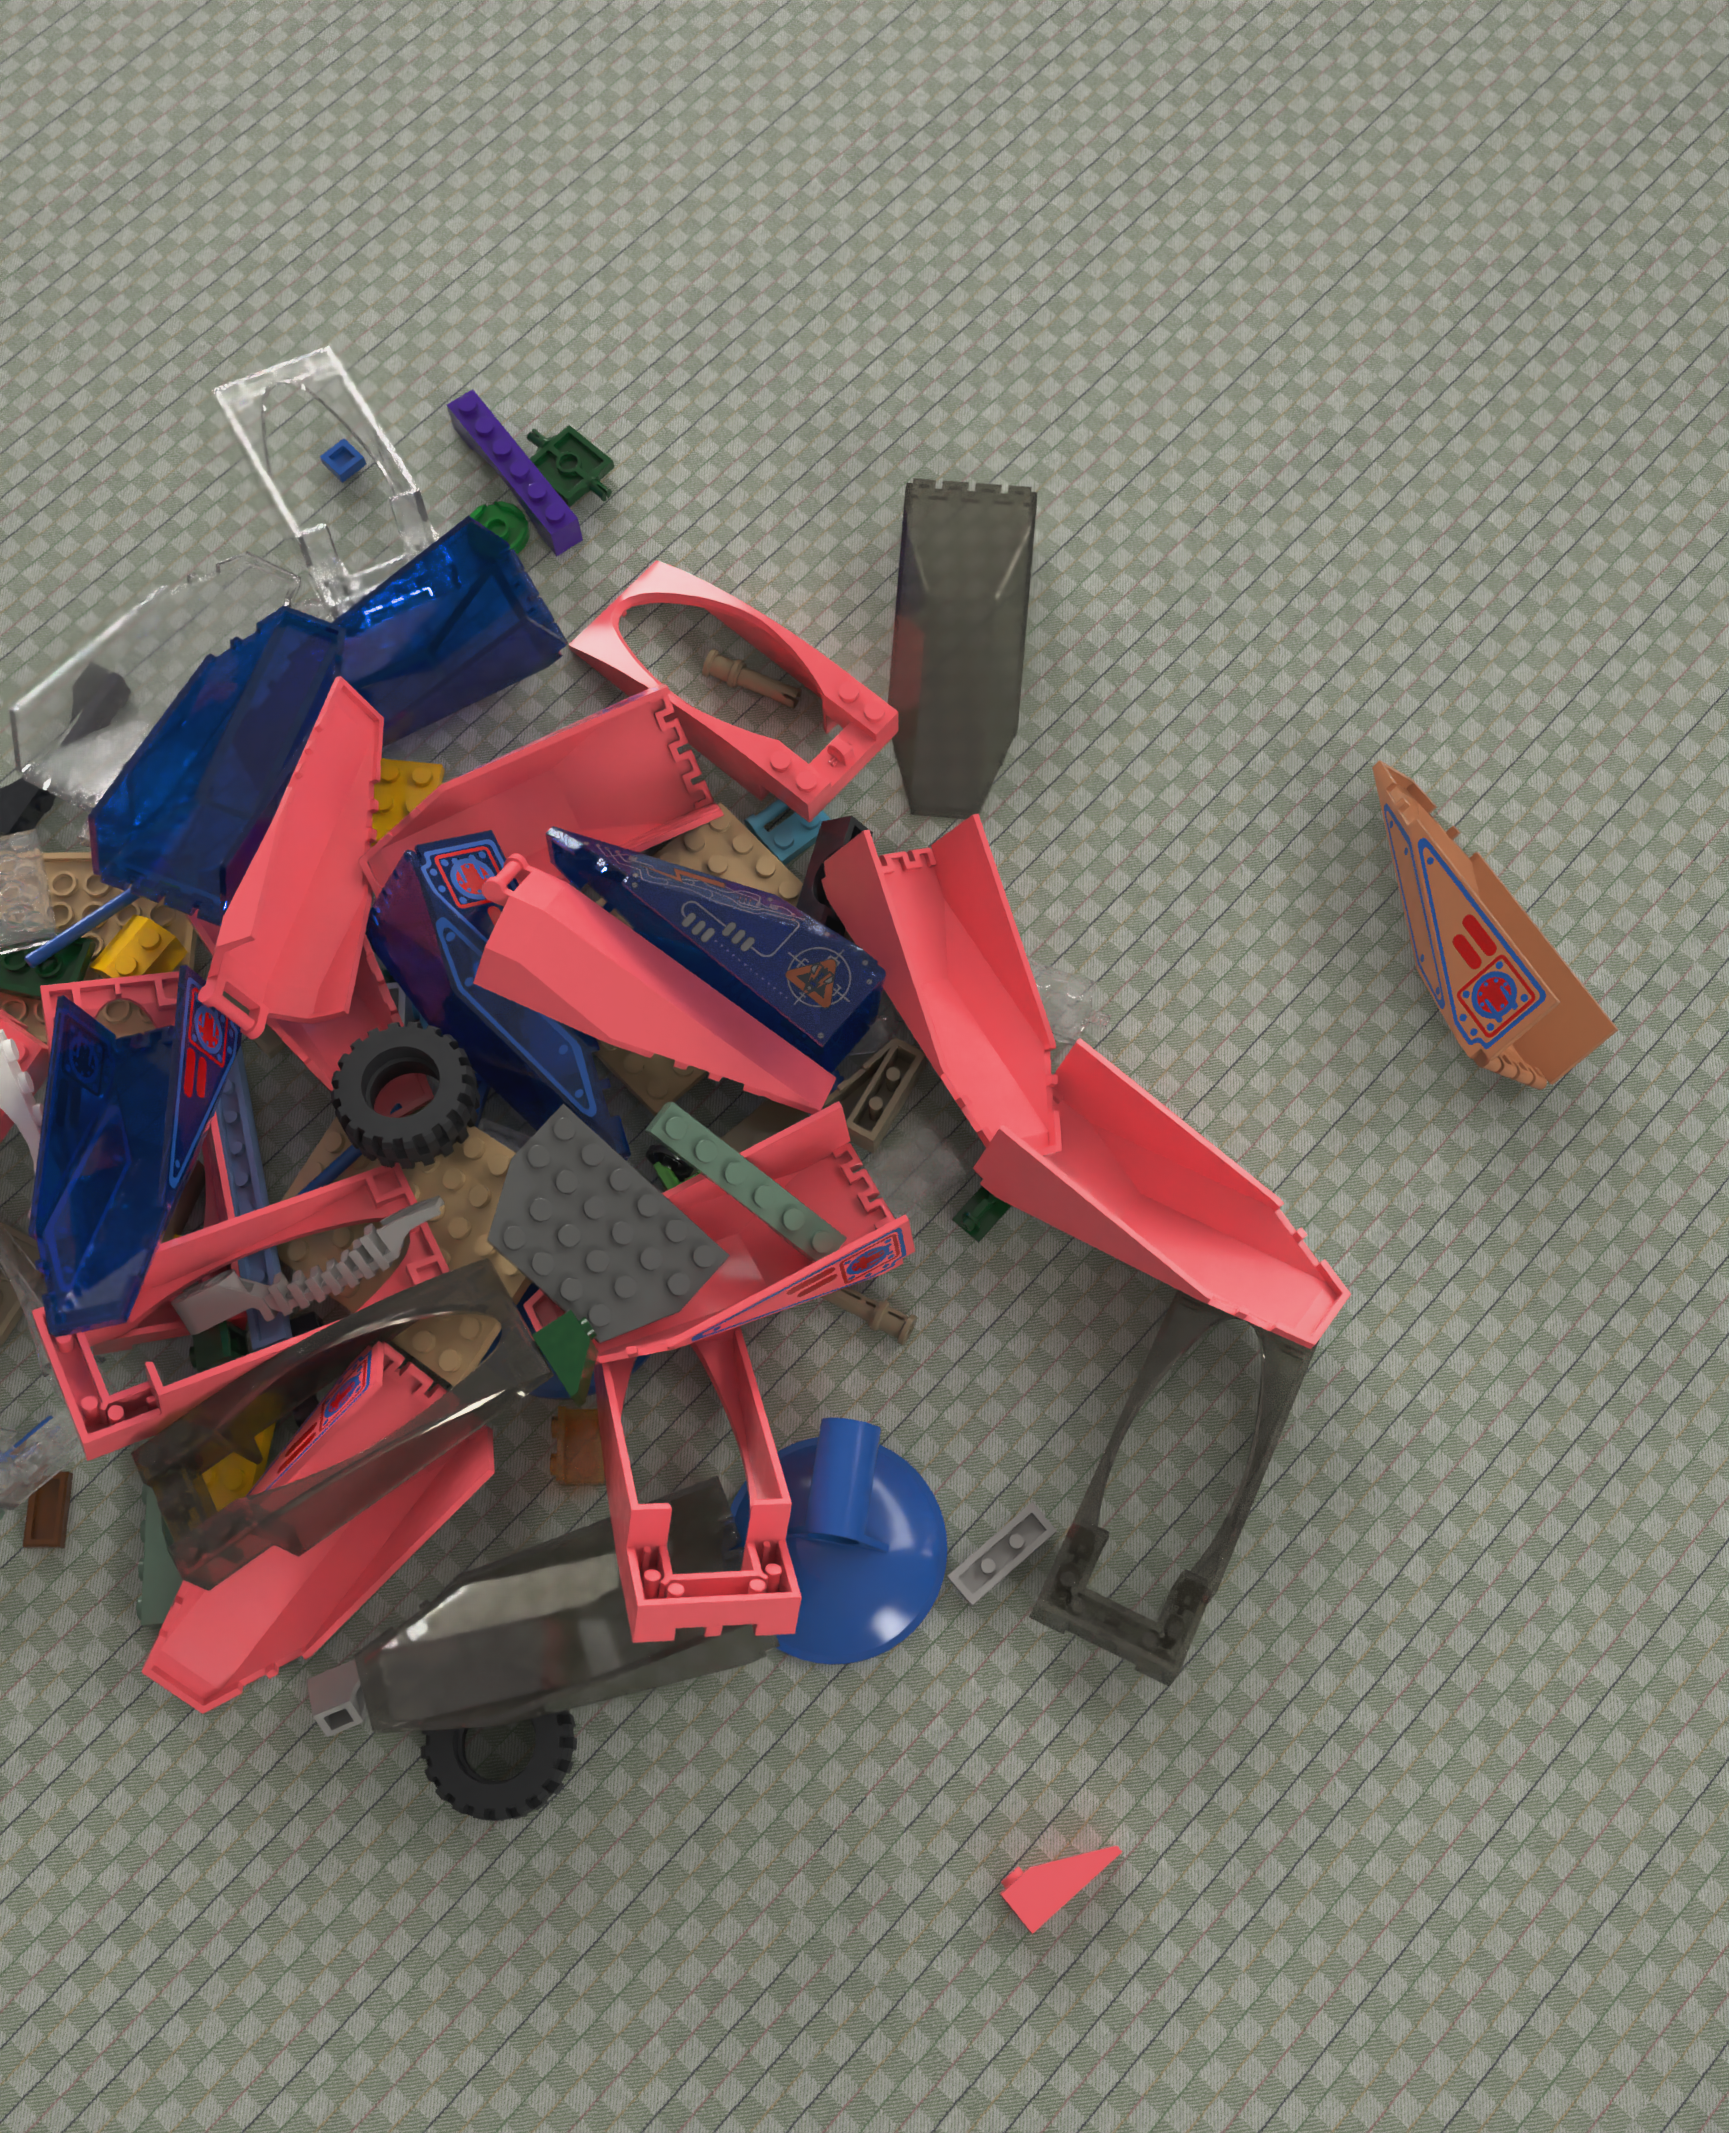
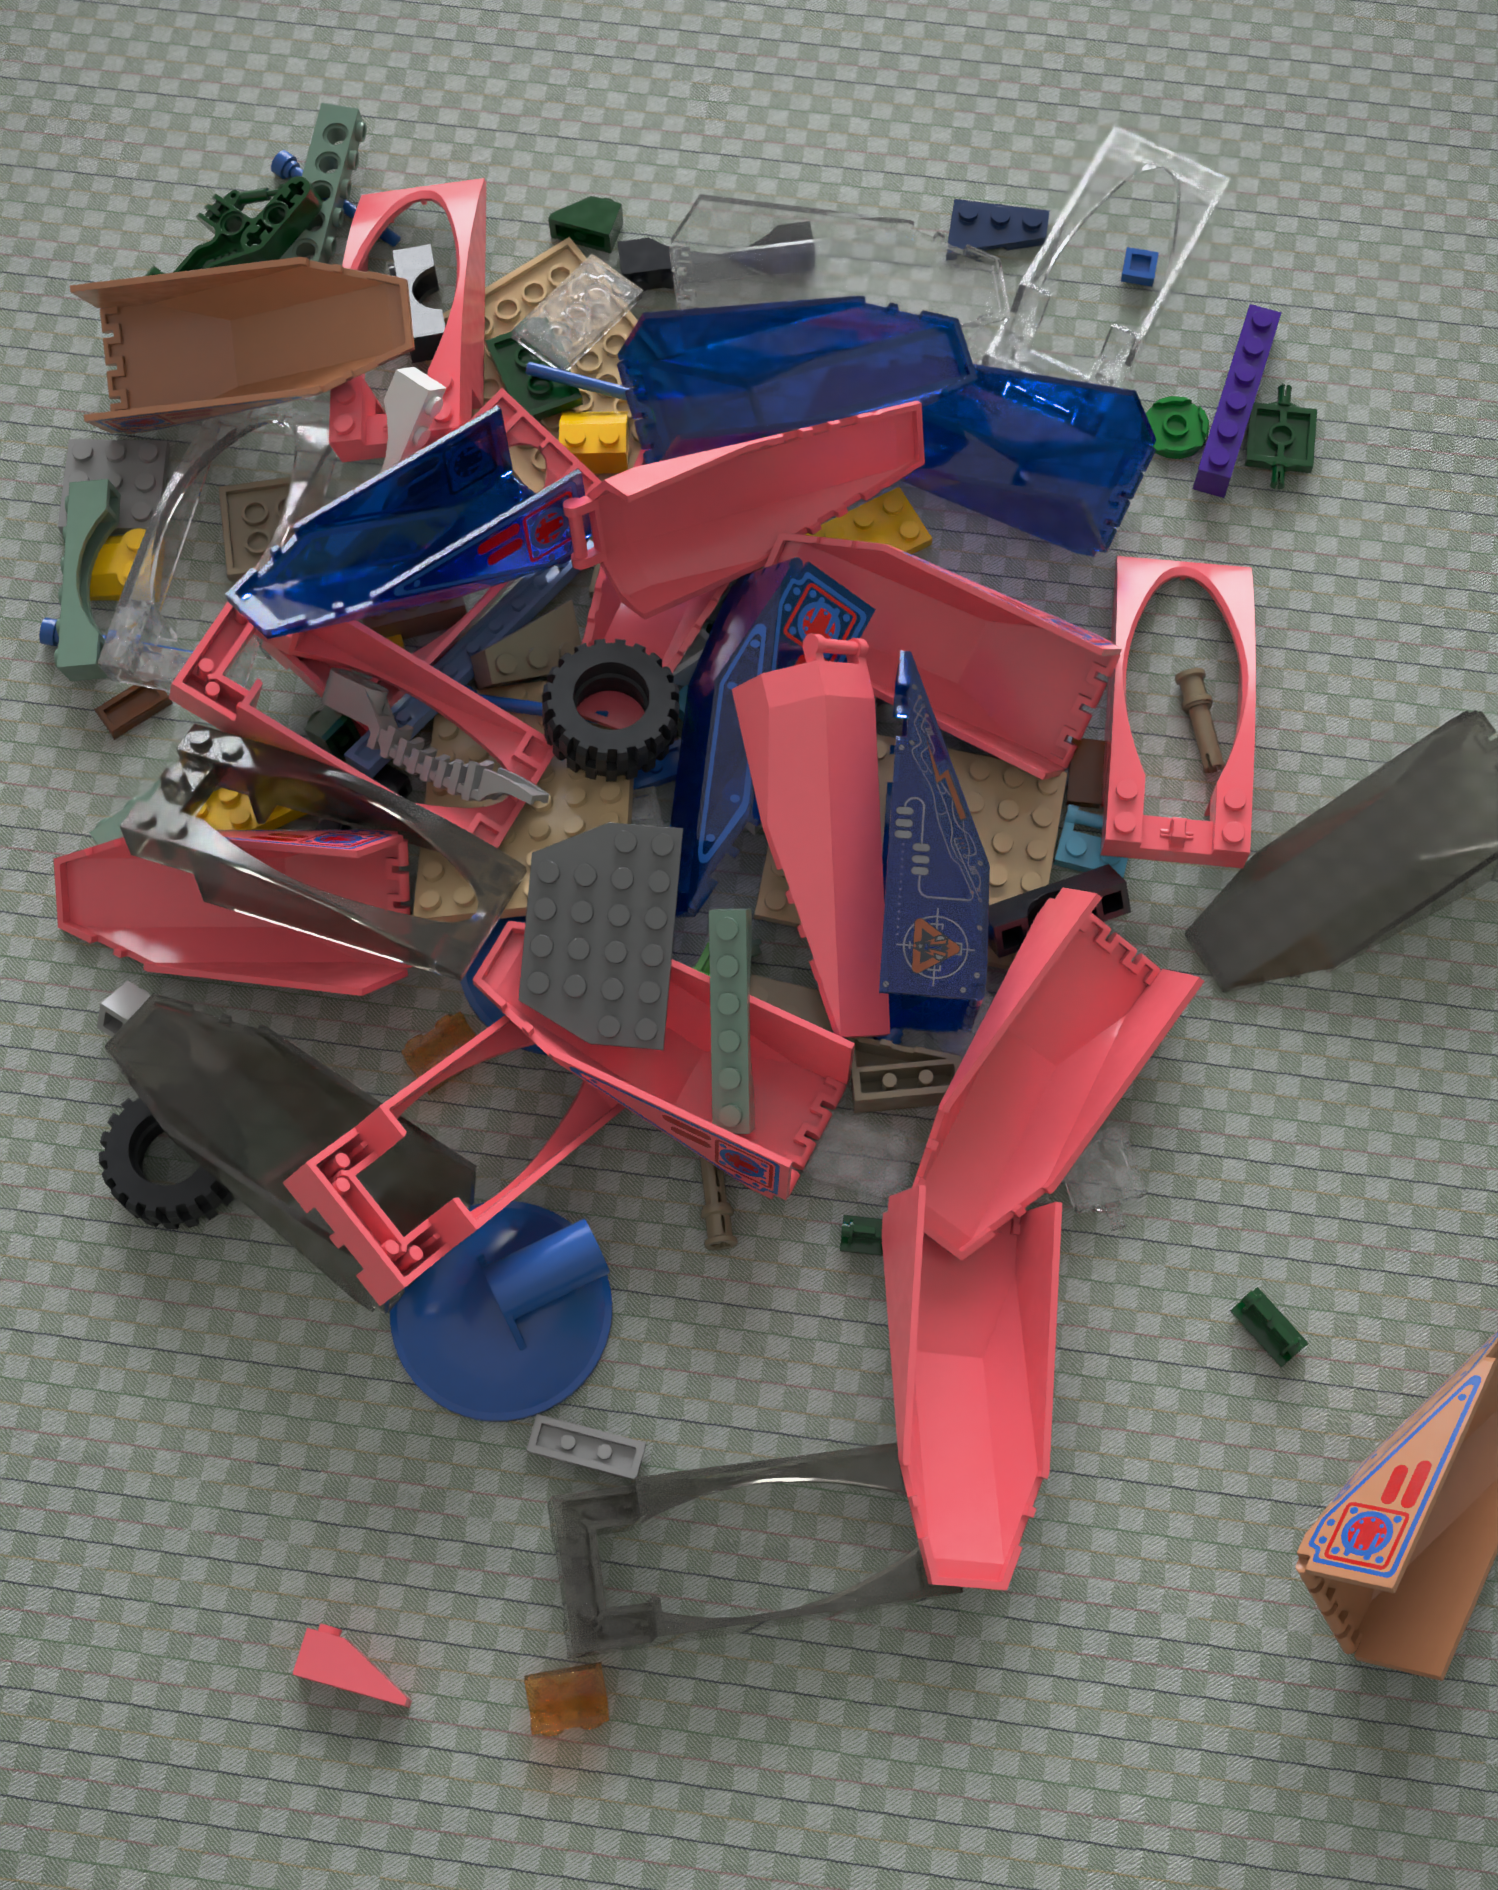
camera: 55 degrees right, 0 degrees up
(215, 534) = (996, 226): none -> dark blue wing
(286, 1131) = (528, 651): none -> dark tan wedge
(570, 1353) = (487, 982): dark green slope -> none
(730, 790) = (1086, 774): none -> reddish brown tile
(1201, 1710) = (567, 1699): none -> clear orange bracket
(1261, 969) = (1269, 1327): none -> dark green hinge

